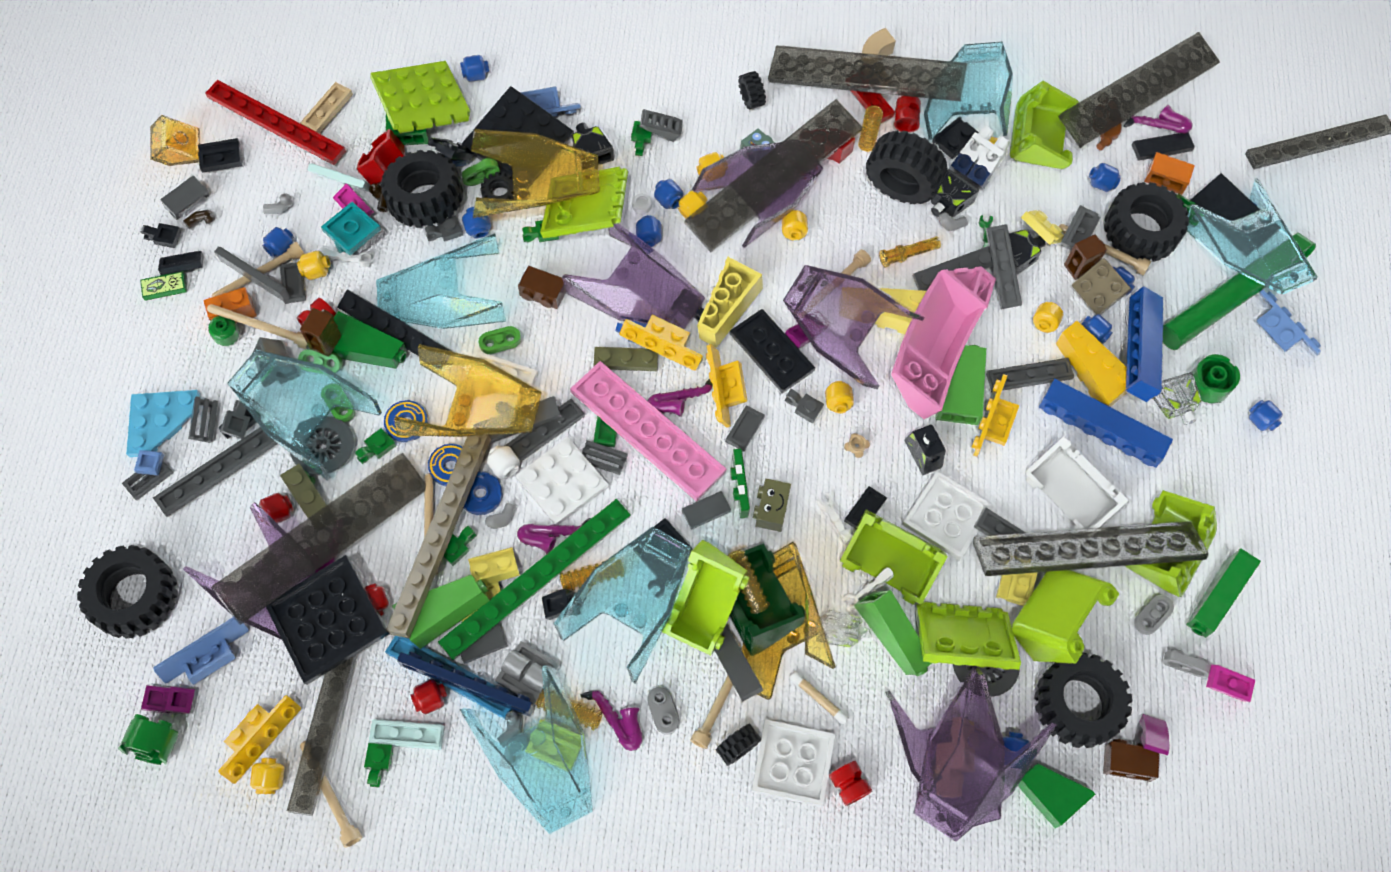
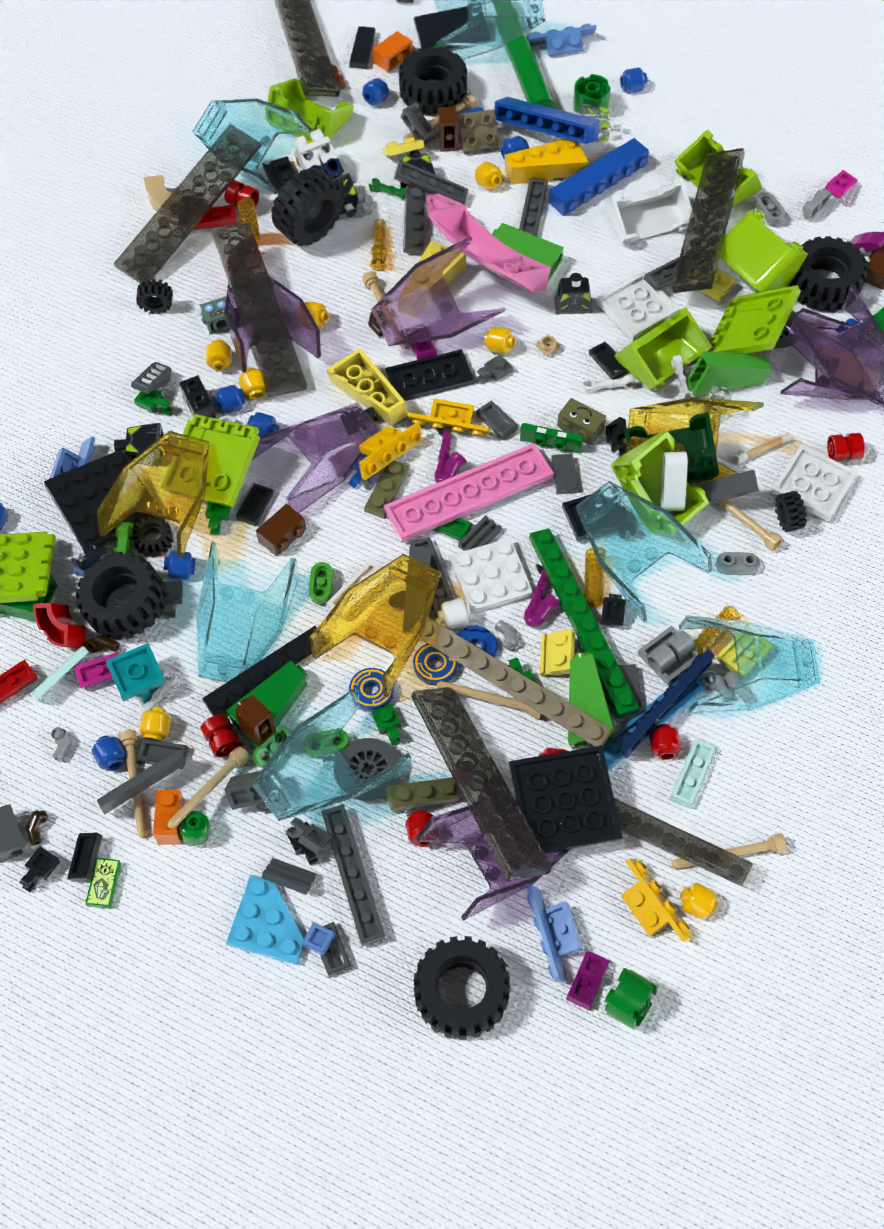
camera: 65 degrees left, 5 degrees down
(377, 760) = (710, 803): green plate -> none
(565, 257) = (254, 504): none -> black tile
(627, 728) = (745, 592): magenta piece -> none
(654, 169) = (197, 397): none -> black brick
(711, 608) = (673, 481): none -> white beam
(772, 542) = (615, 434): none -> black plate
(999, 419) = (574, 245): yellow bracket -> none
(1167, 120) = (342, 33): magenta piece -> none
(1222, 592) = (769, 158): green slope -> none

